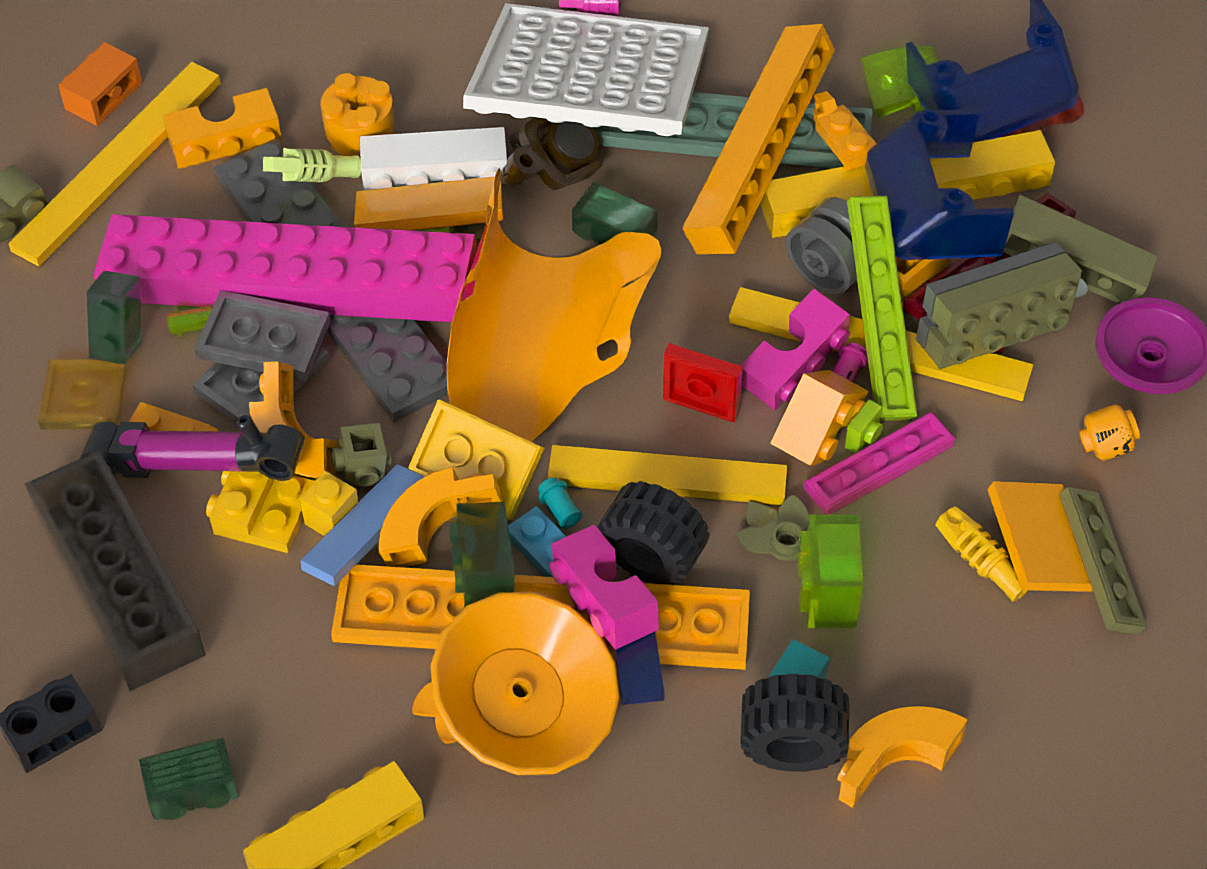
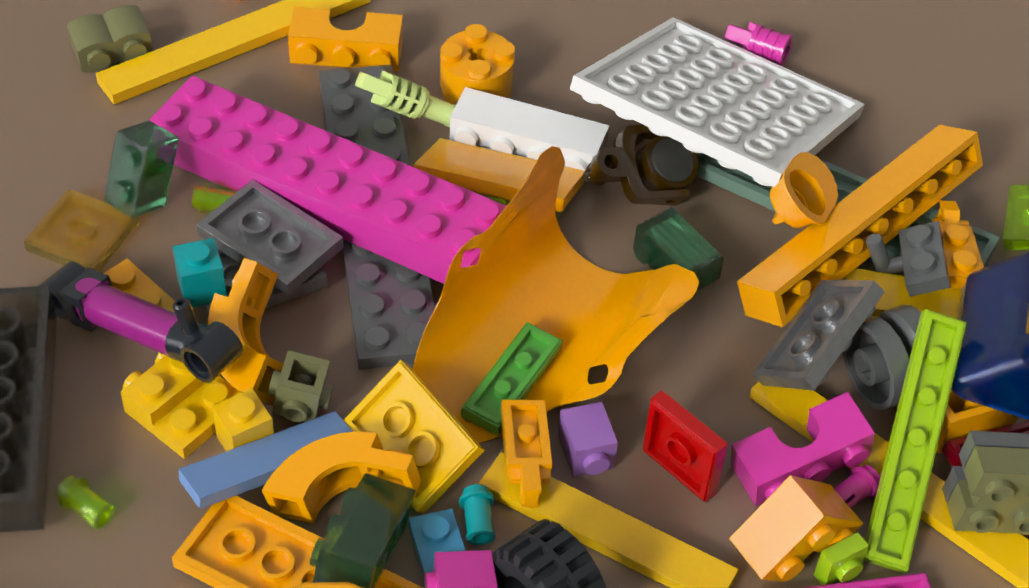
camera: 20 degrees right, 5 degrees down
(222, 390) = (199, 271): none -> teal brick
(228, 619) = (77, 495): none -> clear neon green pin
(529, 380) = (511, 376): none -> bright green tile
(574, 432) = (526, 447): none -> light orange hinge
(618, 407) = (587, 439): none -> medium lavender brick
(704, 131) = (804, 192): none -> light orange piece
(769, 248) = (819, 334): none -> flat silver plate
(821, 153) = (921, 259): none -> dark grey plate

